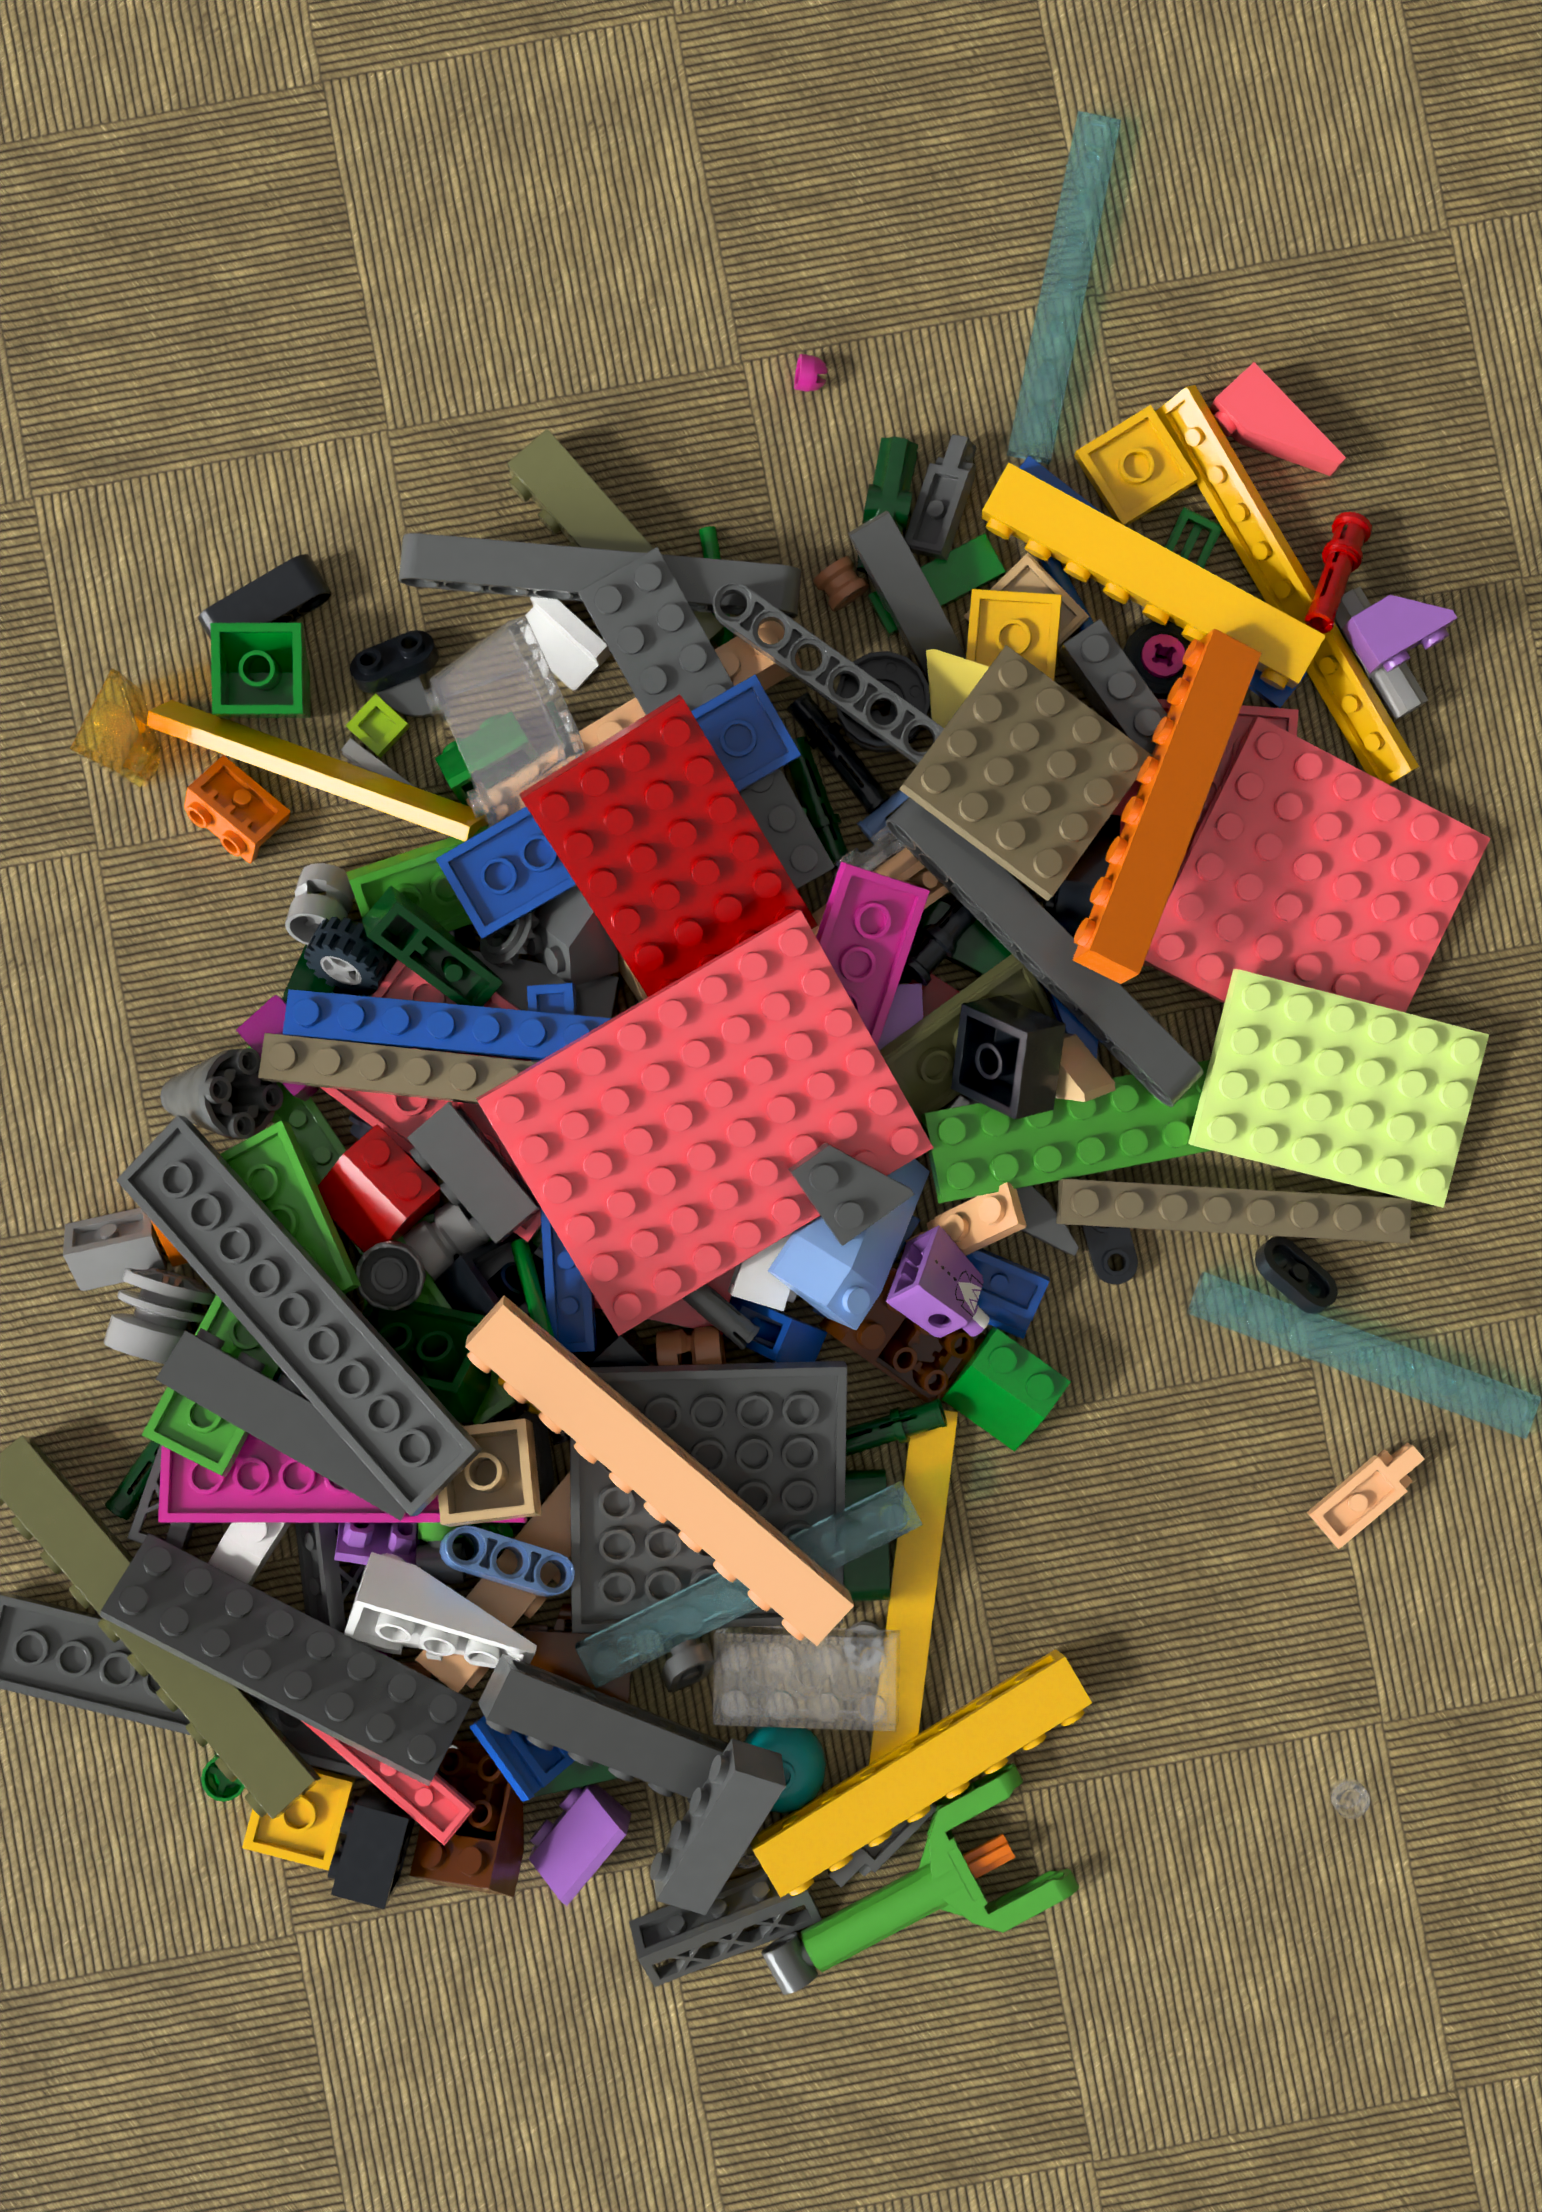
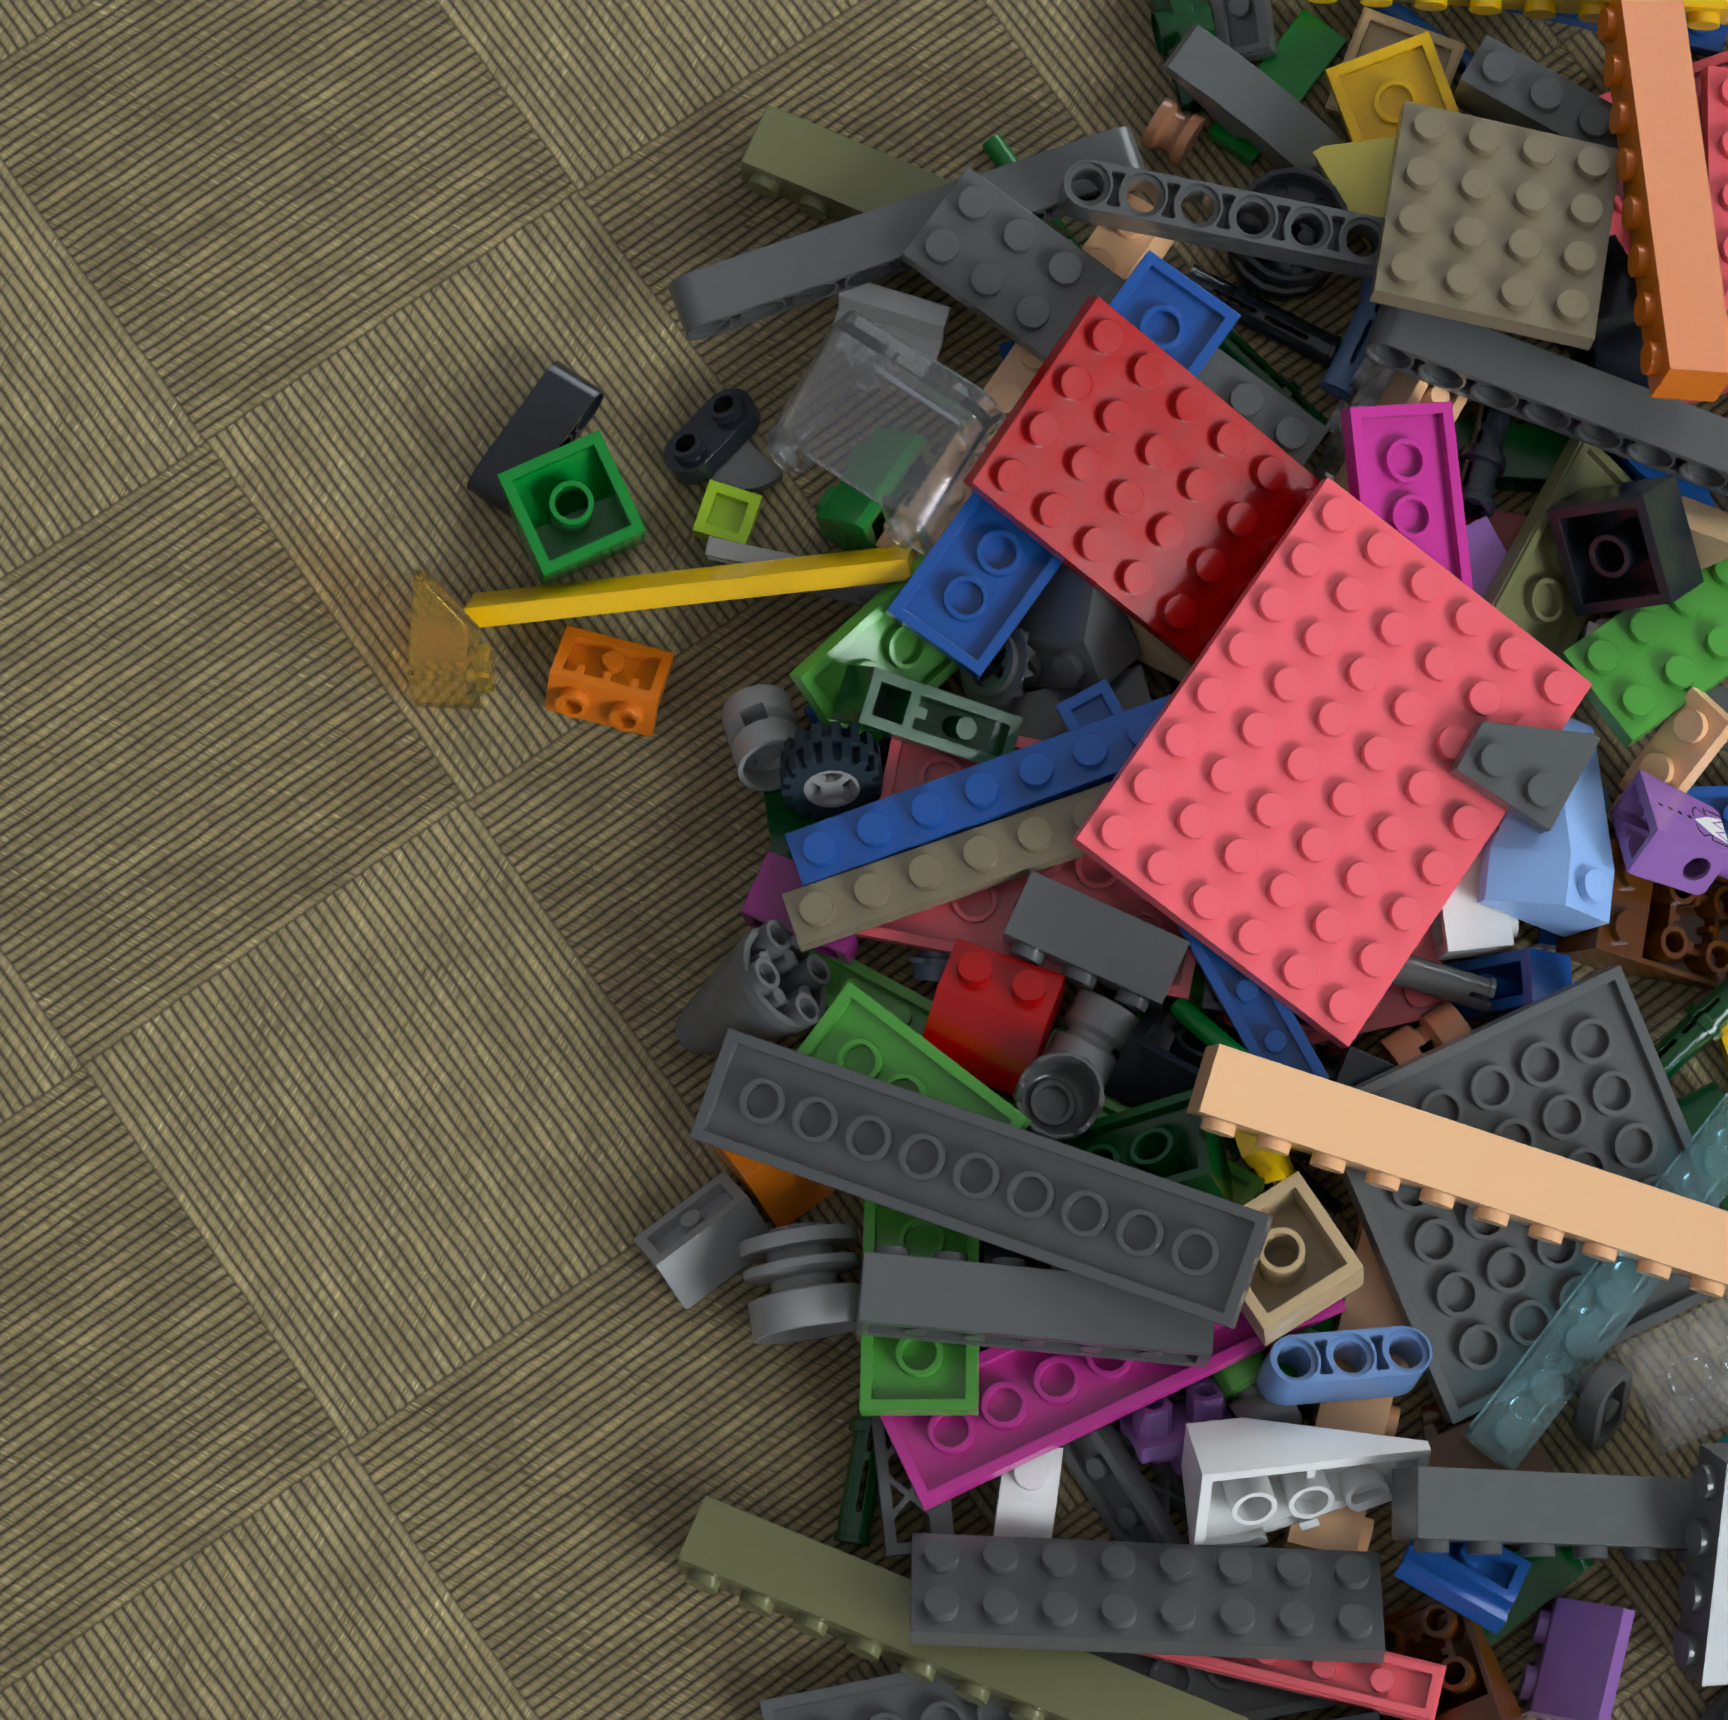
camera: 30 degrees left, 10 degrees down
(1165, 641) = (1571, 36): wheel -> none

